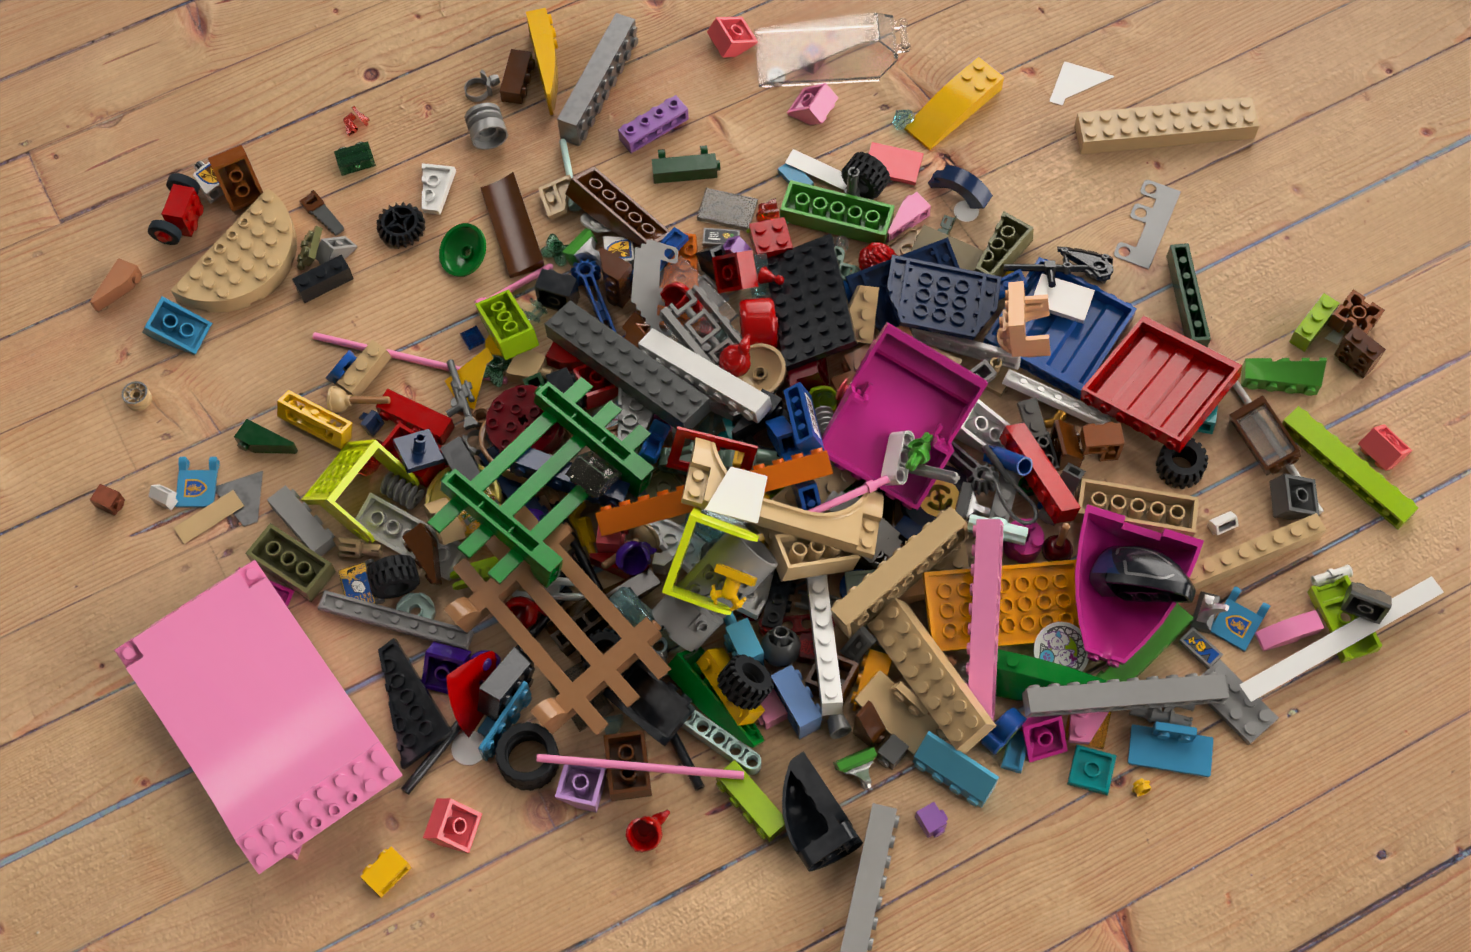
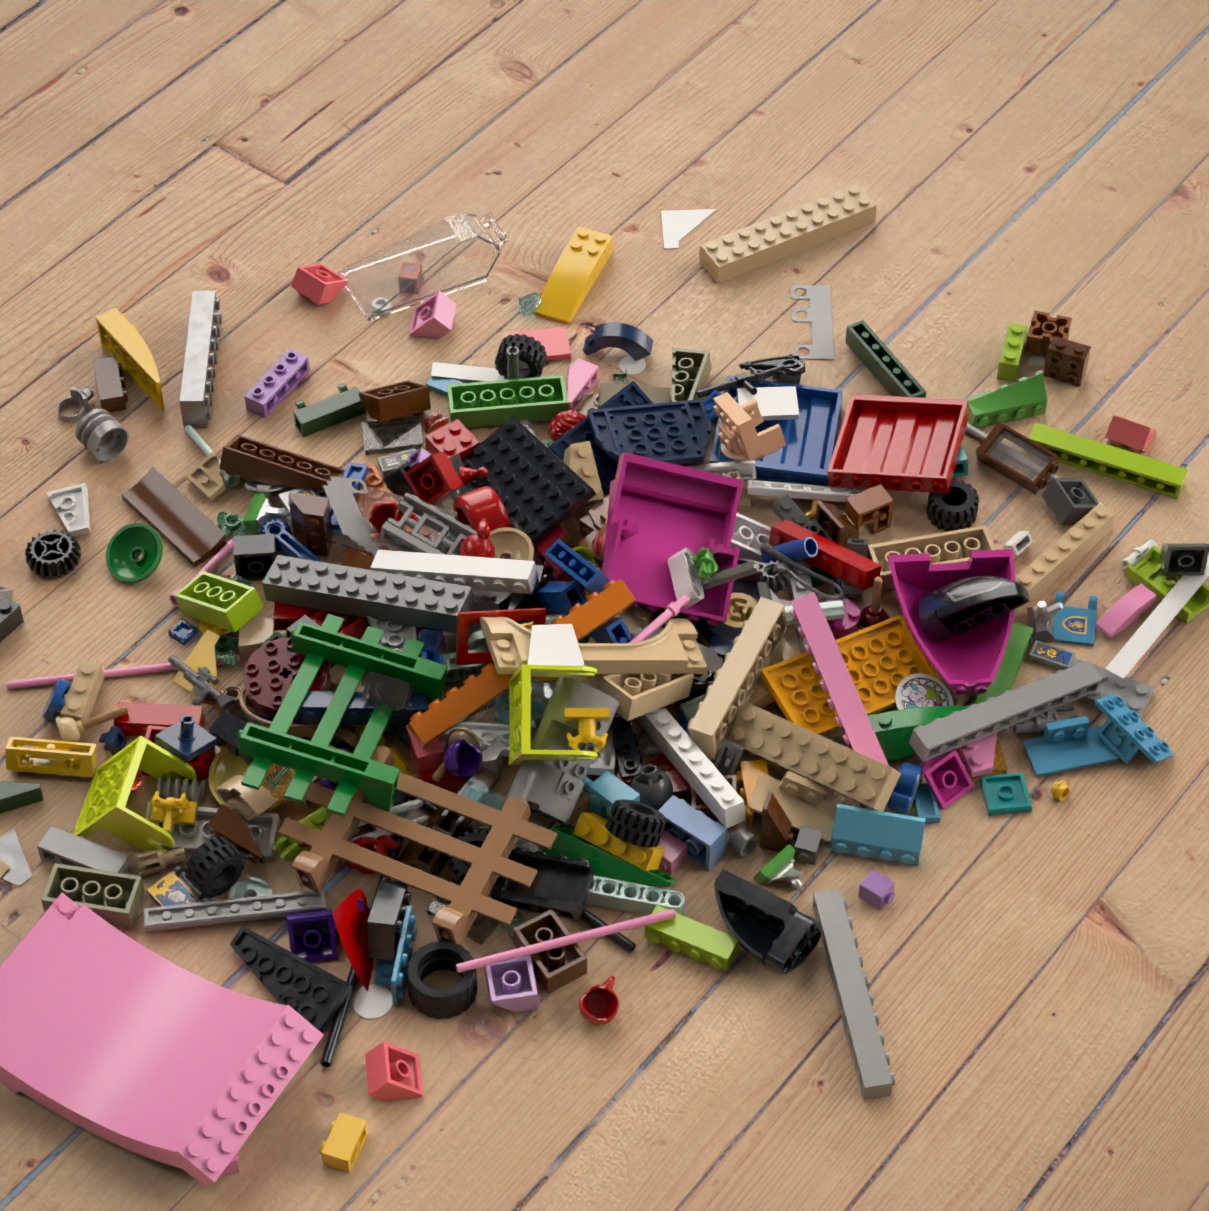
camera: 25 degrees left, 15 degrees down
(383, 510) = (173, 811): none -> yellow piece
(741, 178) = (396, 401): none -> reddish brown slope
(1231, 758) = (1127, 733): none -> dark azure bracket

